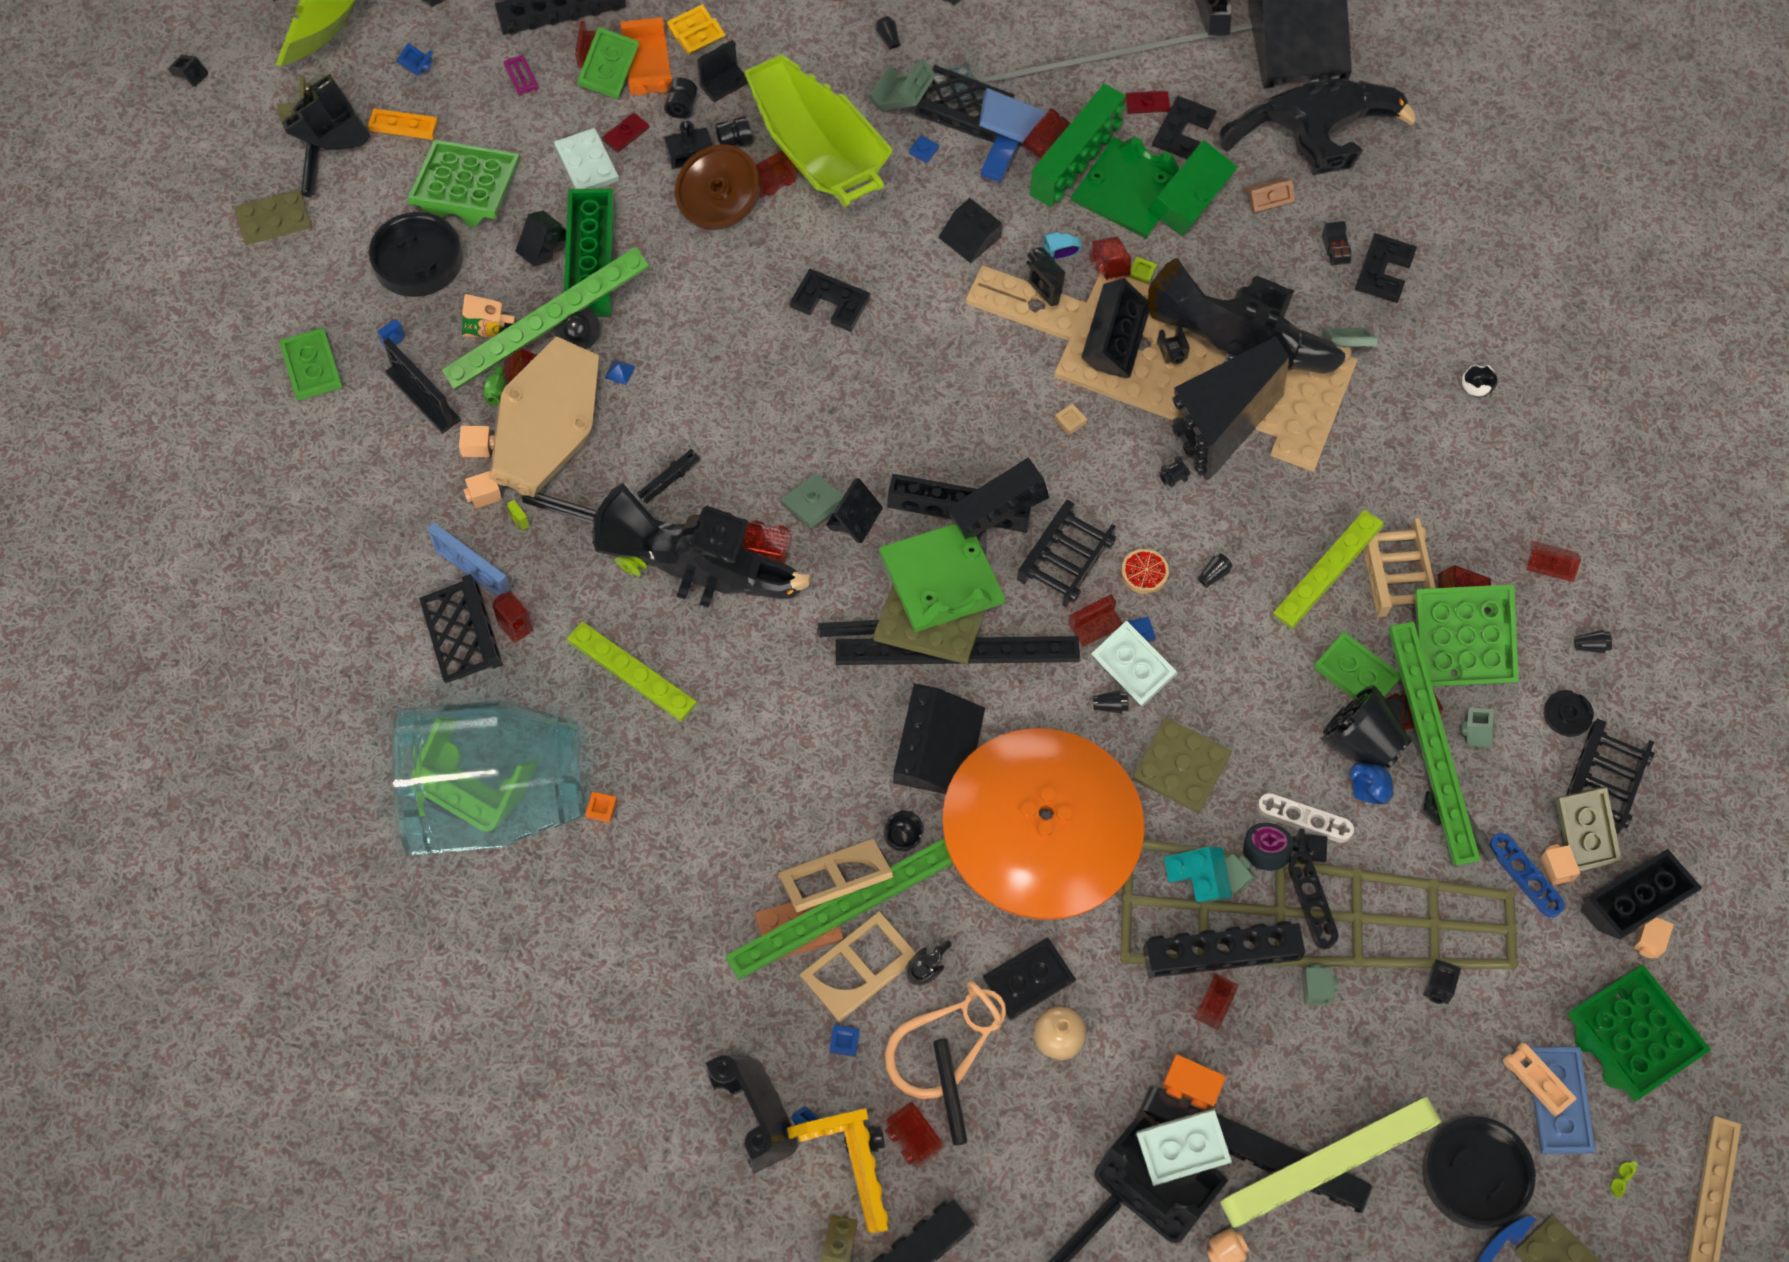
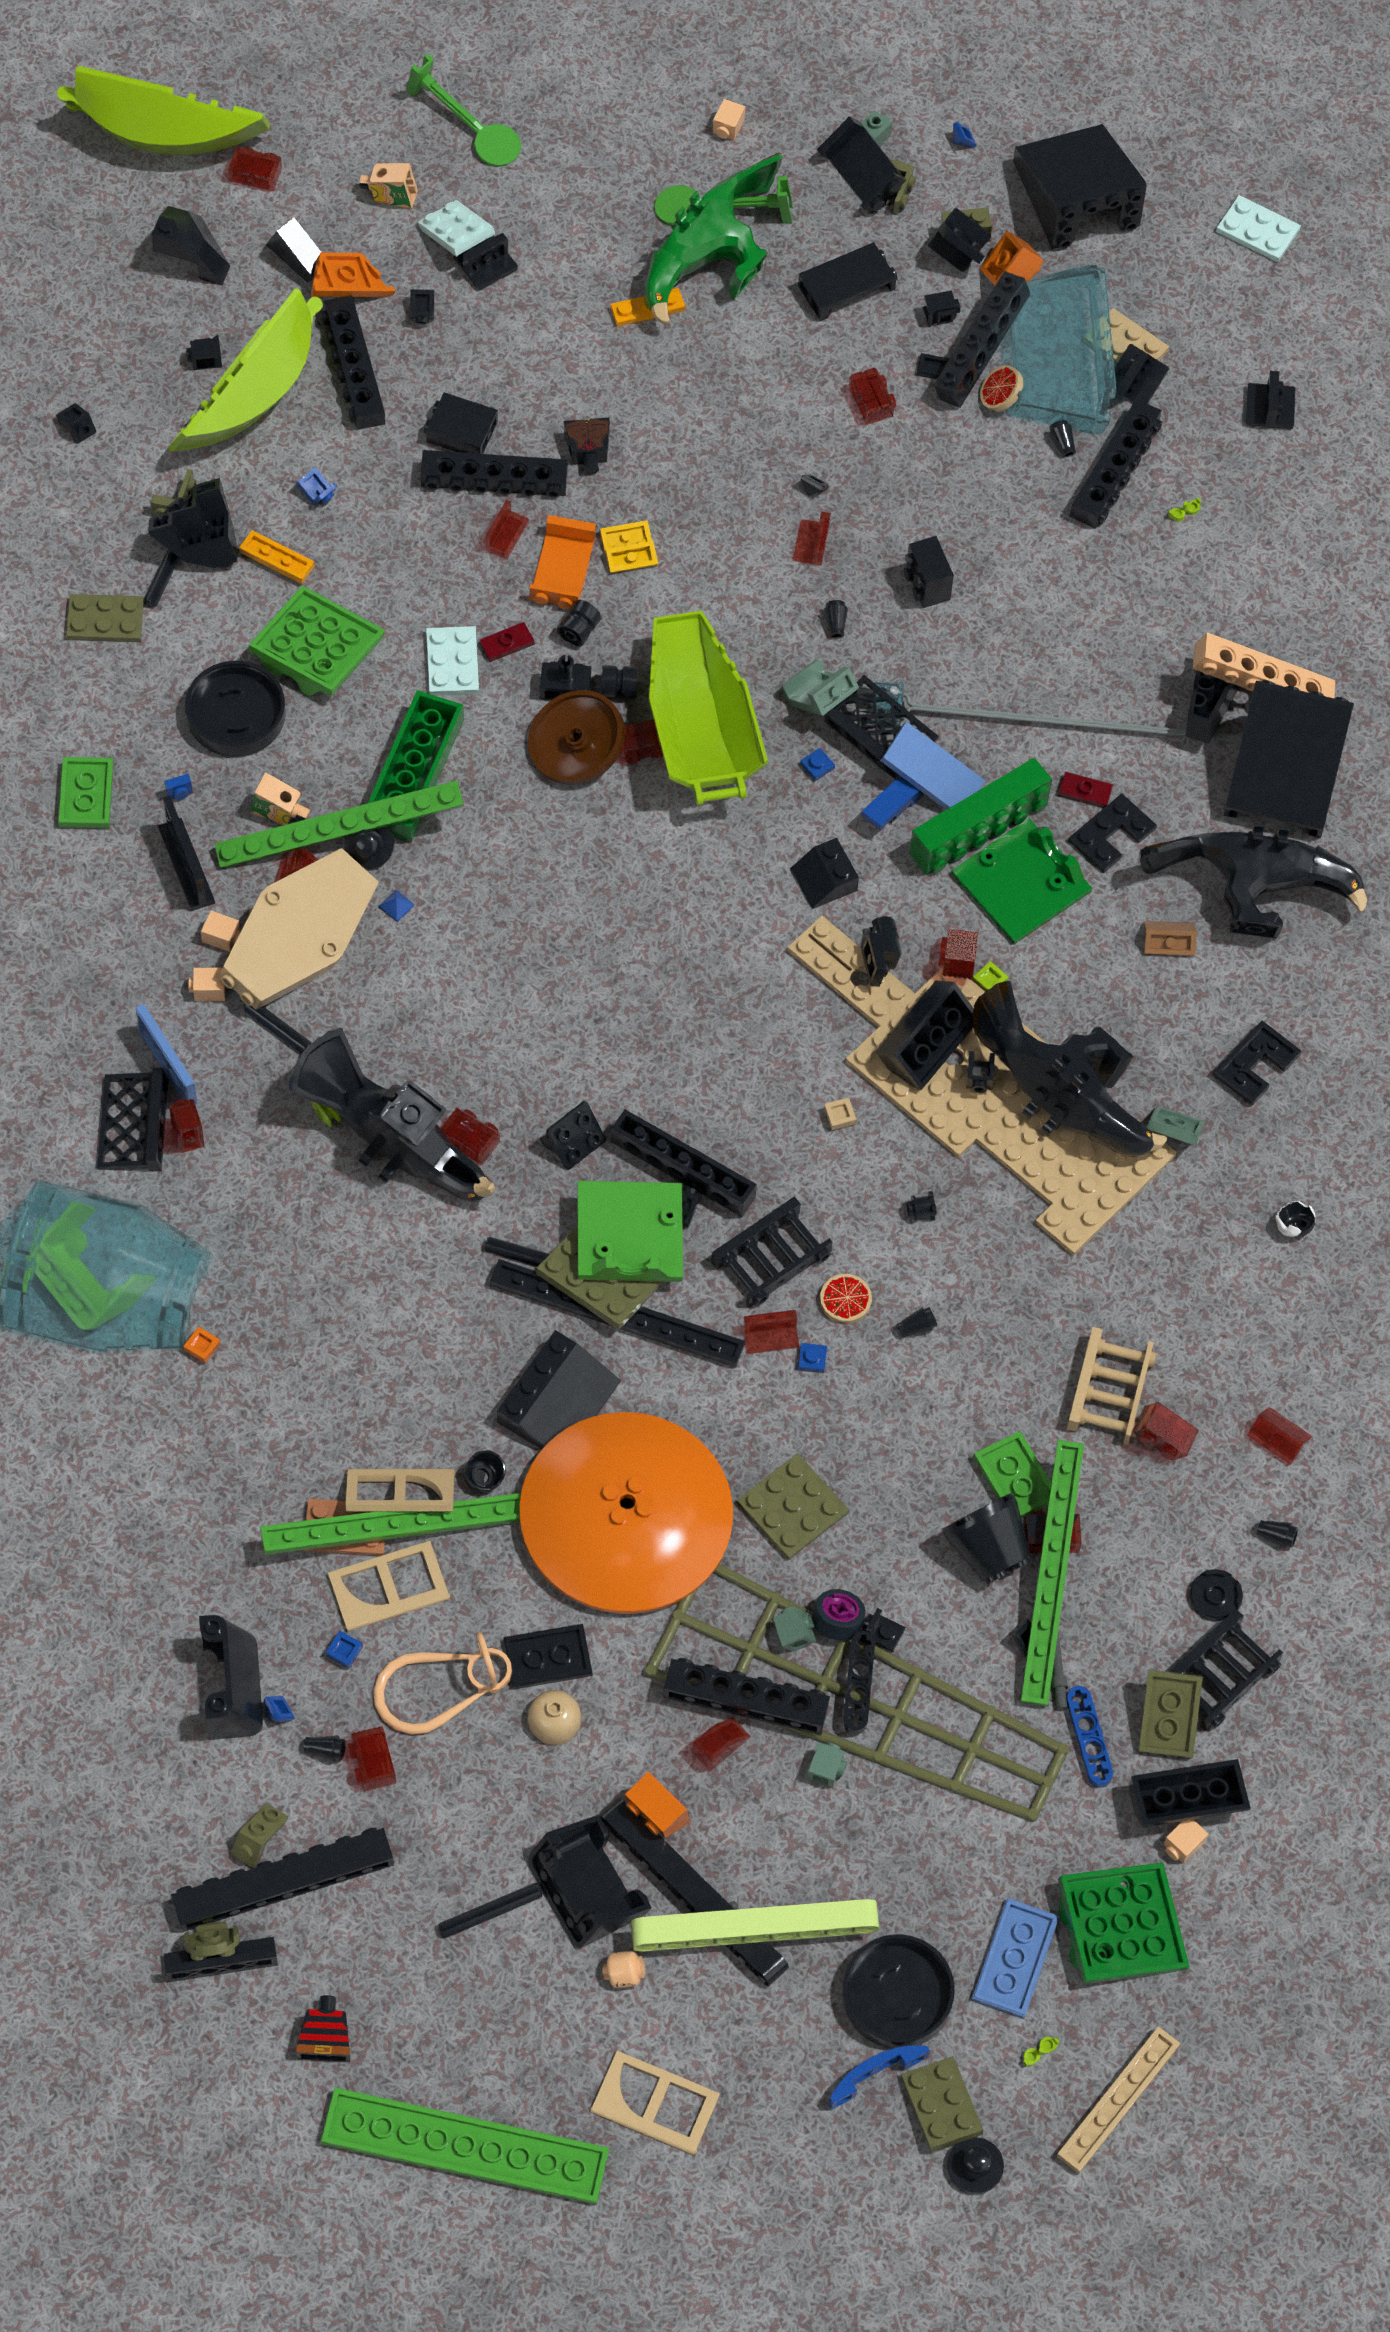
camera: 20 degrees right, 0 degrees up
(494, 386) = (262, 877): bright green plant -> none
(517, 515) = (233, 1023): lime tile -> none
(526, 88) = (422, 556): magenta tile -> none
(539, 238) = (367, 734): black brick -> none
(608, 63) = (517, 557): bright green plate -> none
(632, 671) = (284, 1221): lime plate -> none
(675, 470) = (411, 1029): black pin -> none
(719, 72) = (633, 607): black bracket -> none
(812, 500) = (535, 1108): sand green plate -> none
(818, 286) = (664, 903): black plate -> none
(861, 1159) = (313, 1764): yellow bracket -> none
(923, 967) = (449, 1609): black piece -> none
(950, 1092) = (423, 1731): black axle -> none
(999, 499) = (717, 1173): black wedge -> none
(1046, 133) = (950, 791): clear red brick -> none
(1061, 245) = (916, 921): medium azure rock -> none
(1111, 702) = (752, 1419): black cone -> none
(1134, 663) = (788, 1388): light aqua plate -> none
(1183, 1146) = (621, 1861): light aqua plate -> none
(1192, 188) = (1085, 905): green brick -> none
(1205, 869) = (761, 1615): teal brick -> none
(1228, 404) = (998, 1156): black windscreen -> none
(1306, 813) = (895, 1599): white beam -> none
(1328, 569) = (1034, 1362): lime plate -> none
(1336, 243) = (1215, 1017): black leg -> none
(1371, 783) = (973, 1591): blue hair -> none
(1442, 982) = (950, 1805): black bracket -> none
(1466, 639) = (1135, 1475): bright green piece -> none
(1479, 727) = (1111, 1575): sand green brick -> none
(1539, 1079) = (1000, 1929): light nougat plate -> none
(1559, 864) = (1126, 1738): light nougat brick -> none

